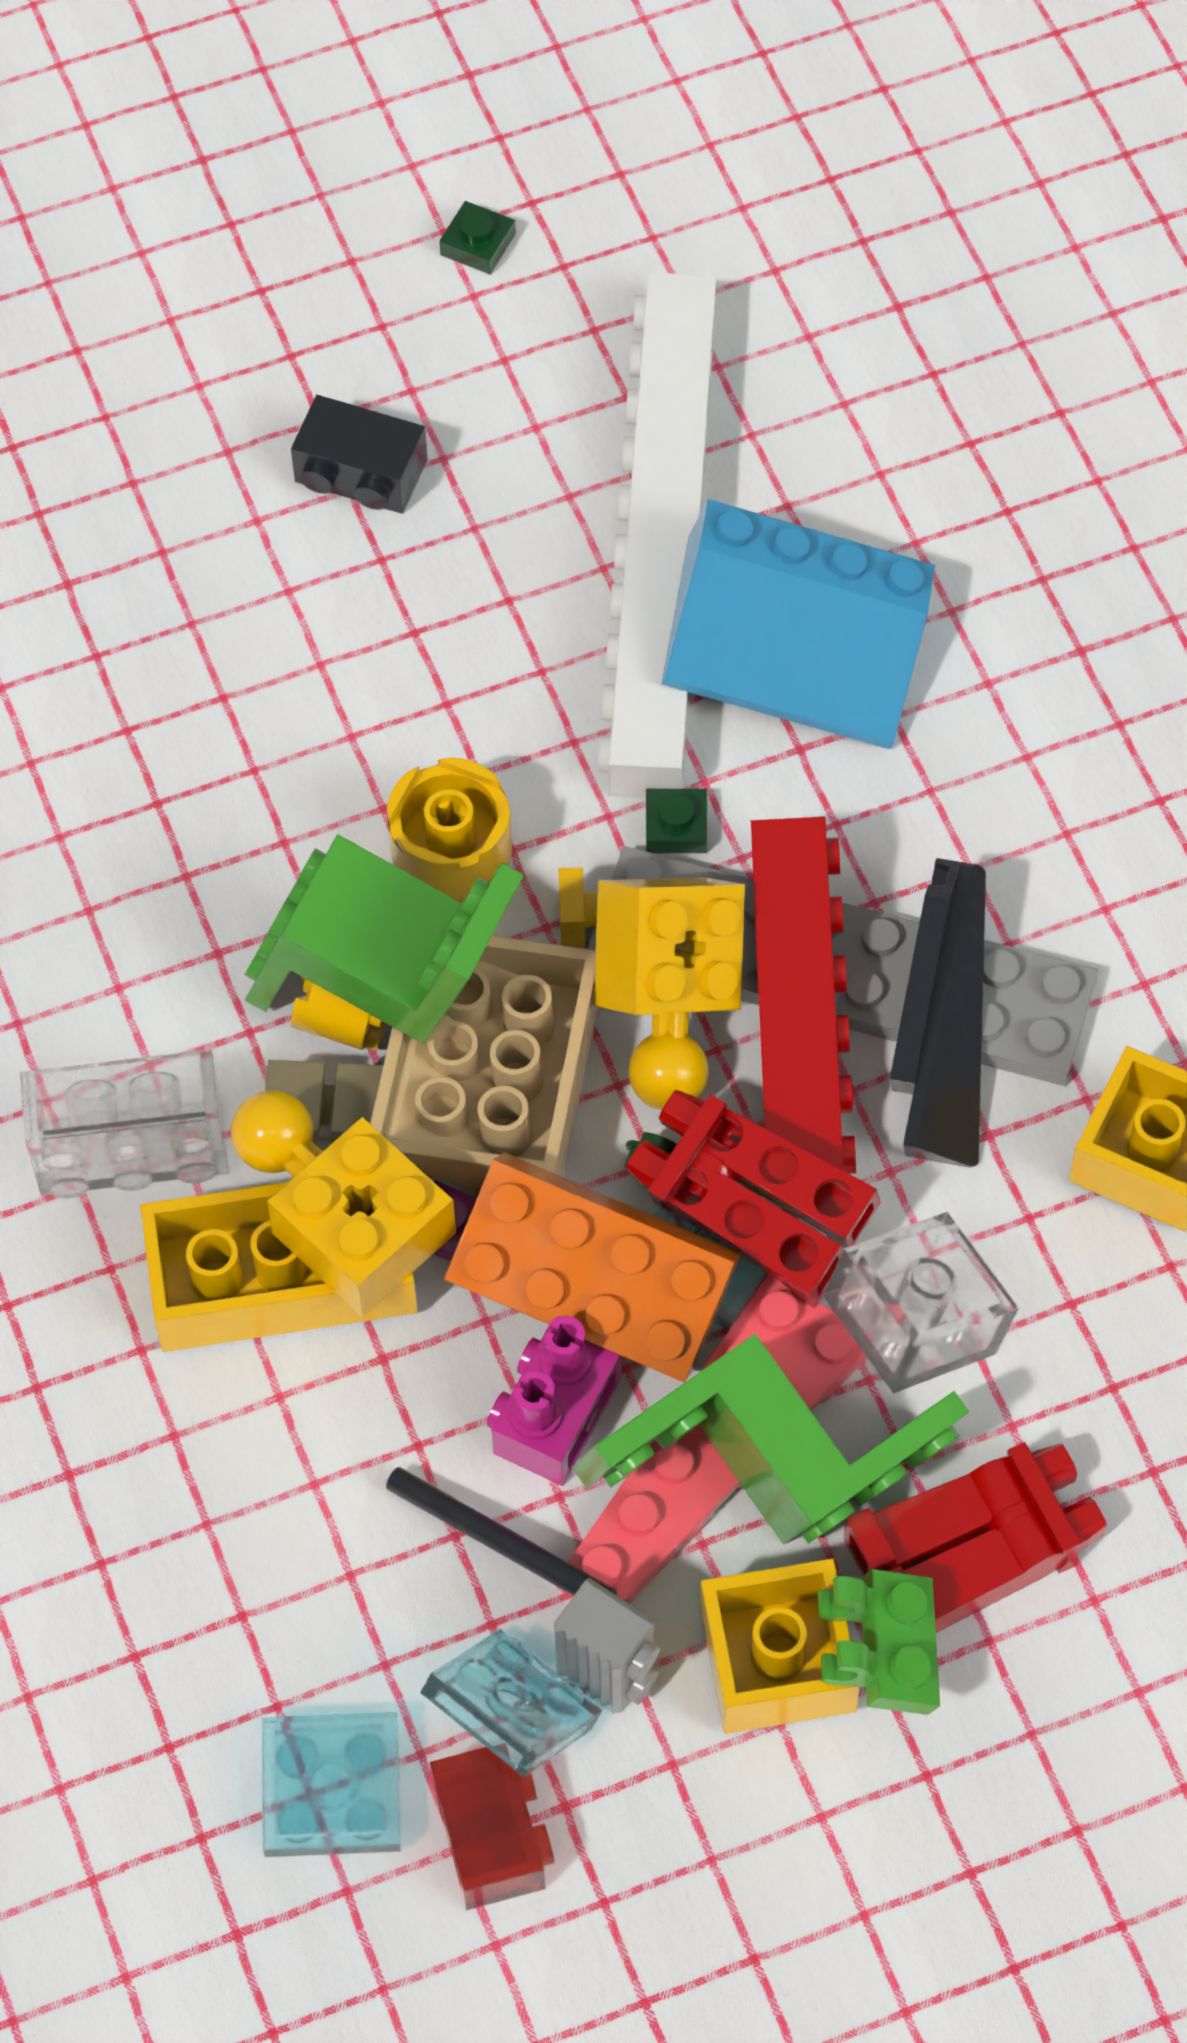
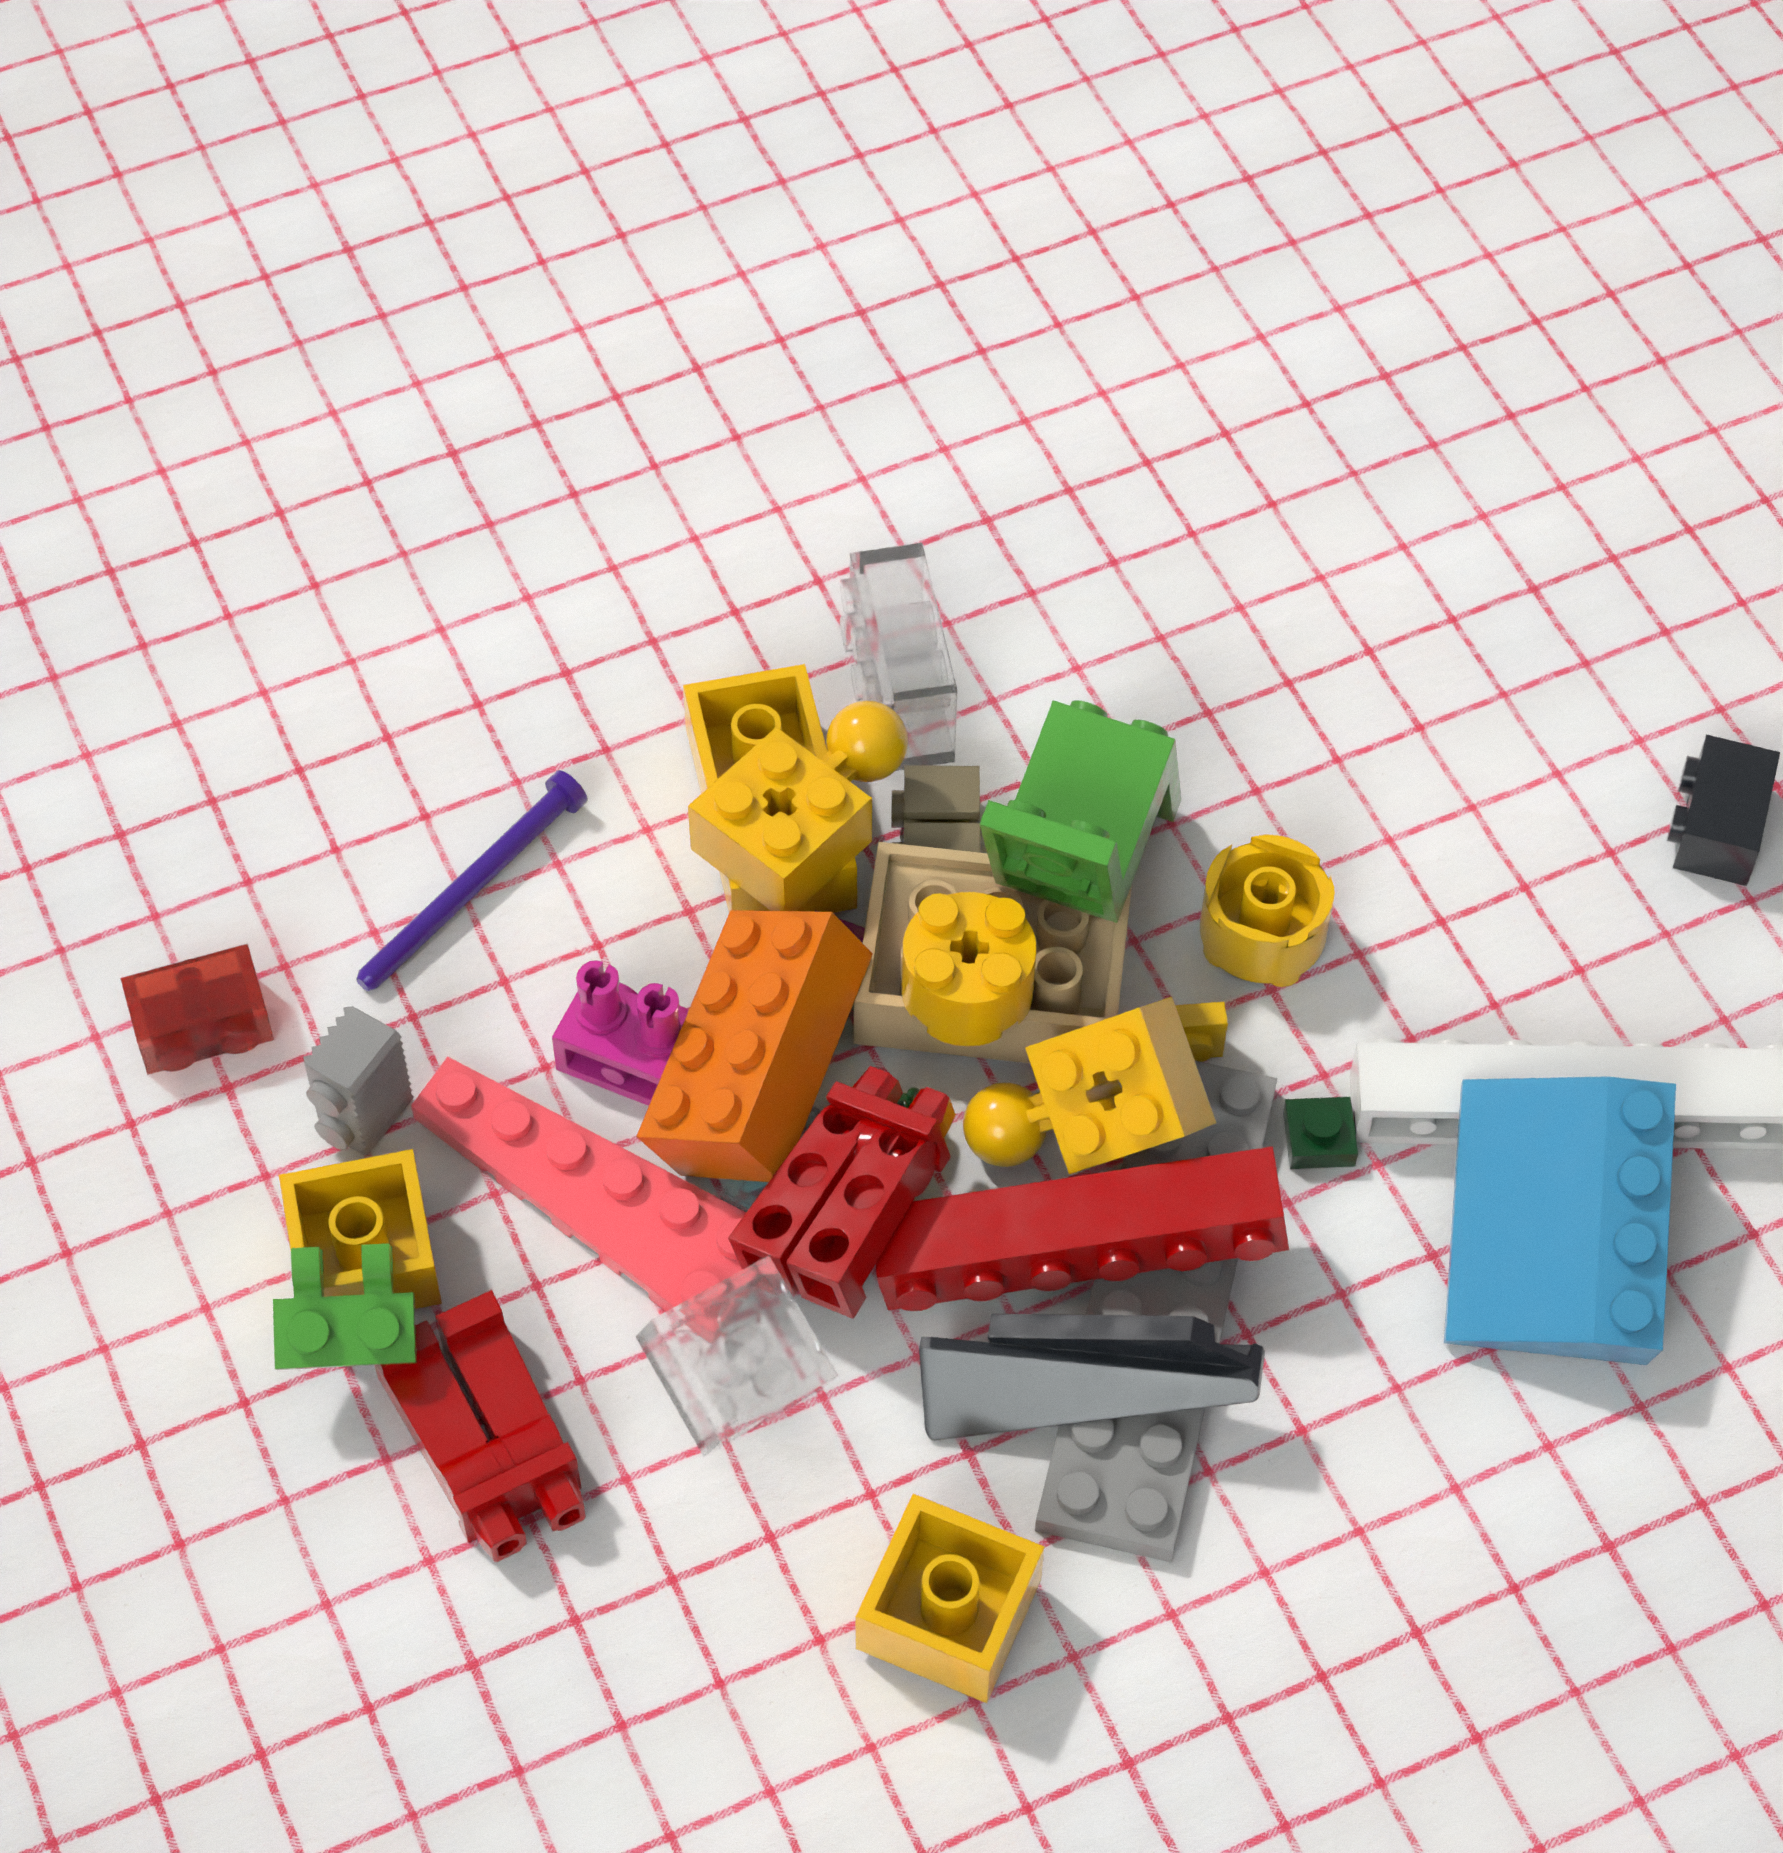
camera: 85 degrees right, 5 degrees down
(241, 1469) = (562, 795): none -> dark purple bar
(331, 1784) = (246, 885): clear light blue plate -> none
(489, 1532) = (485, 1007): black bar -> none
(511, 1701) = (297, 998): clear light blue plate -> none
(545, 1055) = (968, 966): none -> yellow brick
(771, 1443) = (559, 1211): bright green bracket -> none

